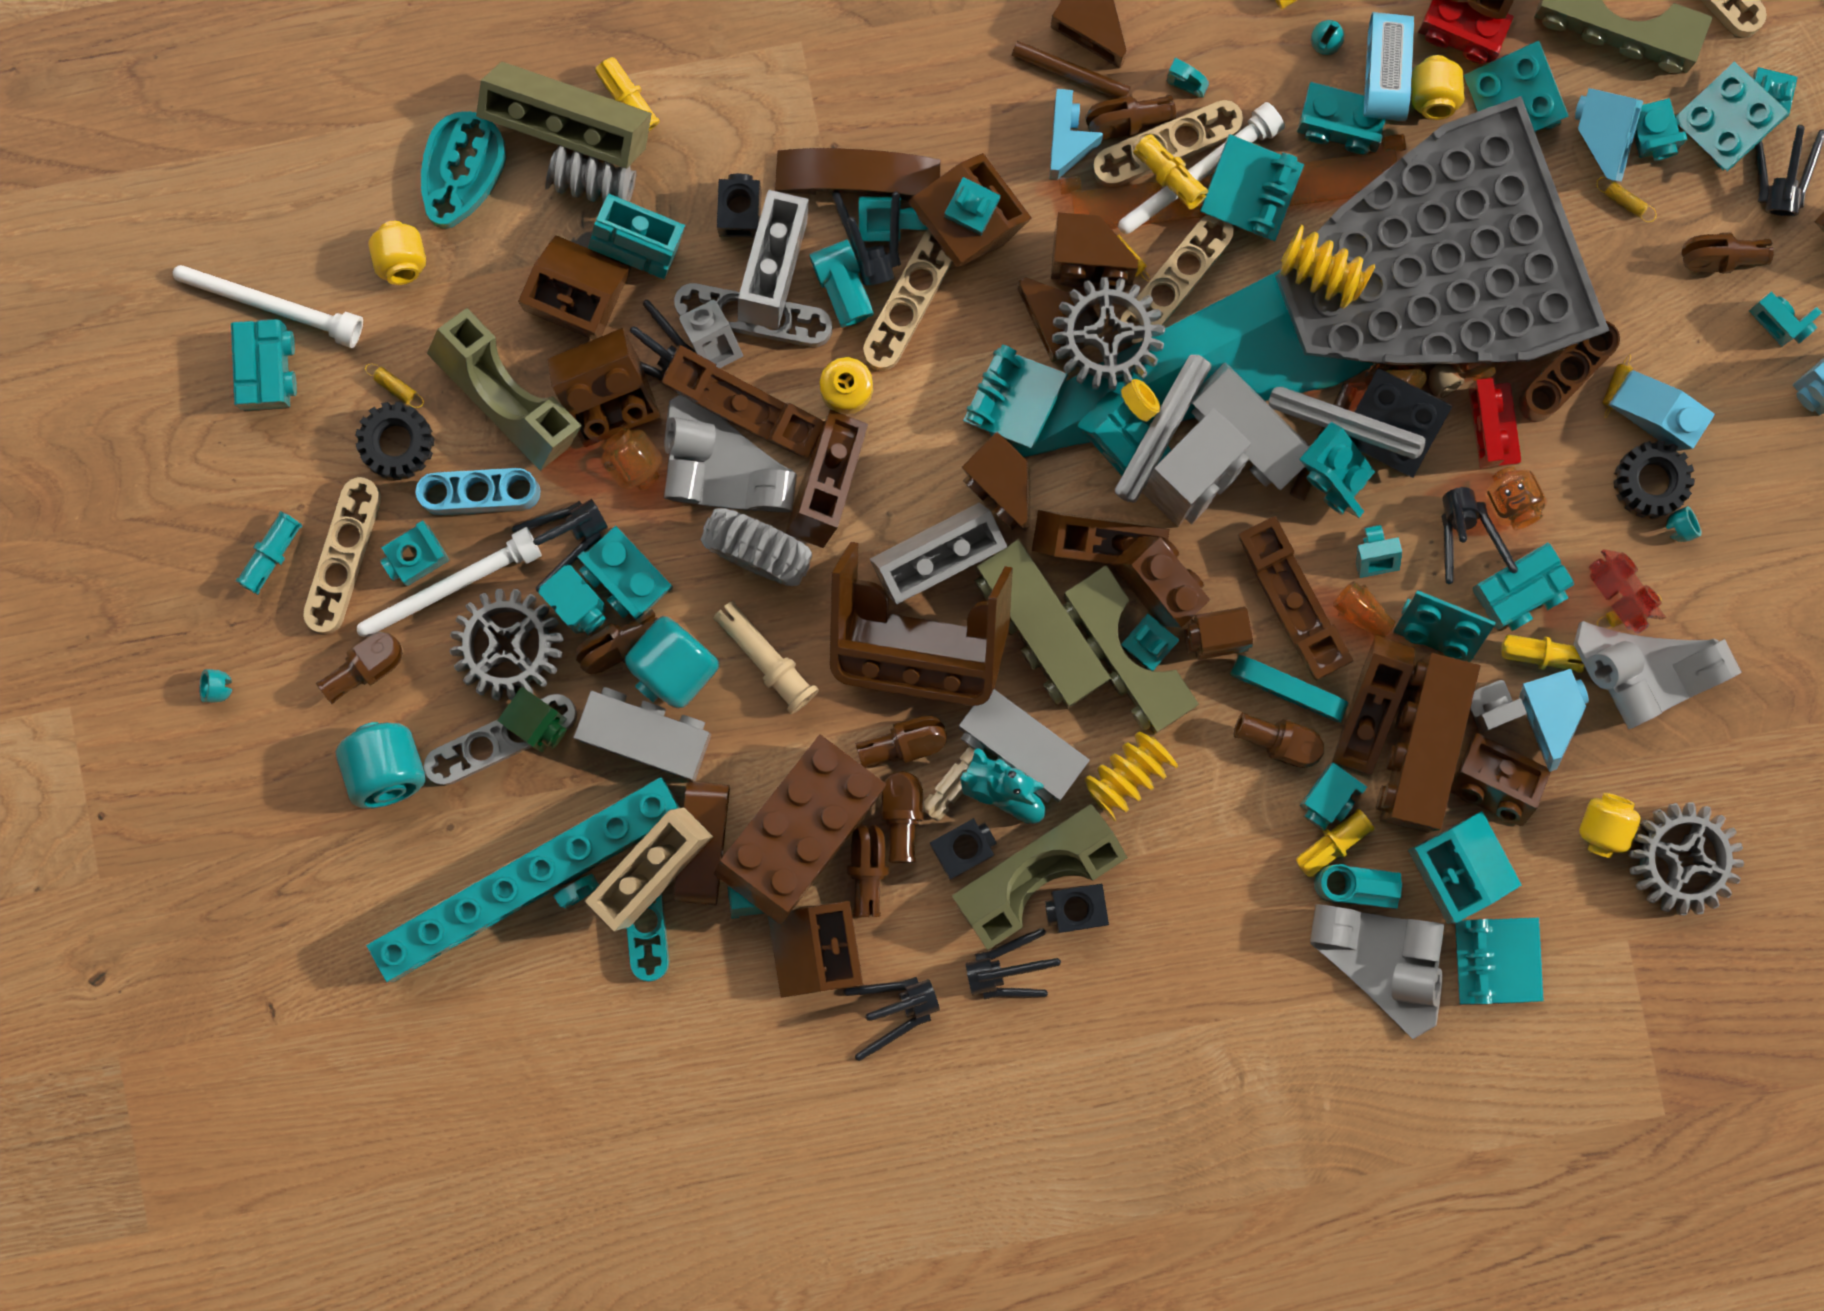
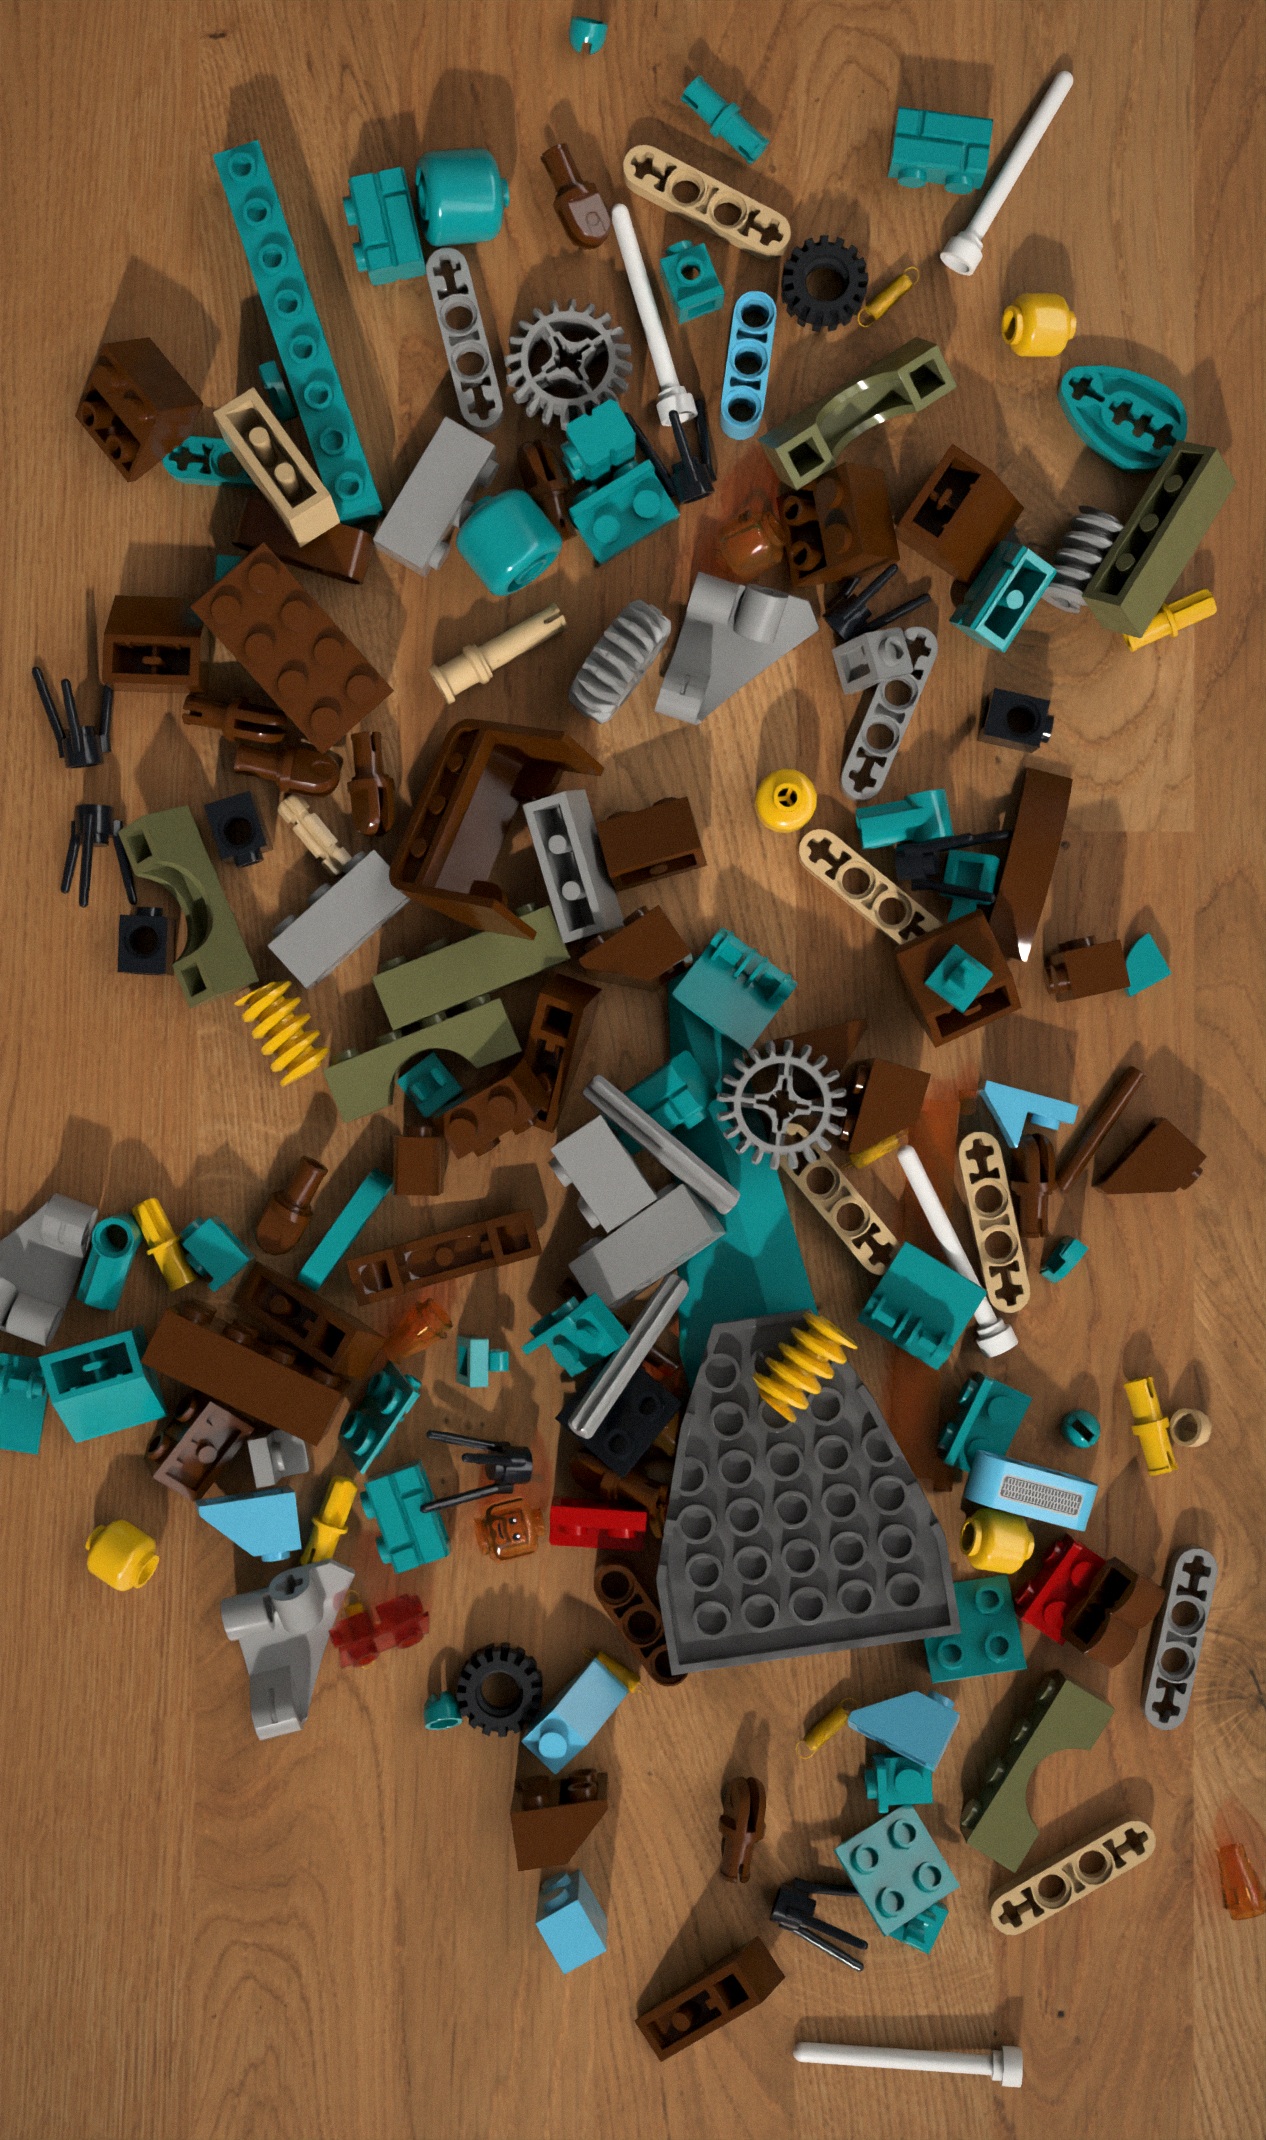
camera: 105 degrees right, 5 degrees up
(415, 826) = (386, 226): none -> teal brick
(533, 721) = (470, 372): dark green slope -> none
(615, 1008) = (137, 406): none -> reddish brown slope
(741, 403) = (790, 679): reddish brown slope -> none
(772, 259) = (944, 743): light grey brick -> none
(827, 480) = (684, 759): reddish brown slope -> none
(905, 491) = (651, 843): none -> reddish brown brick
(925, 60) = (1144, 965): none -> teal tile
(941, 105) = (1085, 969): none -> reddish brown brick
(1004, 787) = (296, 881): teal animal -> none
(1140, 399) = (697, 1125): yellow tile -> none
(1170, 171) = (957, 1215): yellow pin -> none
(1457, 426) = (601, 1480): none -> reddish brown arm
(1693, 842) = (83, 1640): light grey gear -> none
(1750, 406) = (556, 1816): none -> reddish brown slope
(1779, 320) = (654, 1870): teal bracket -> none

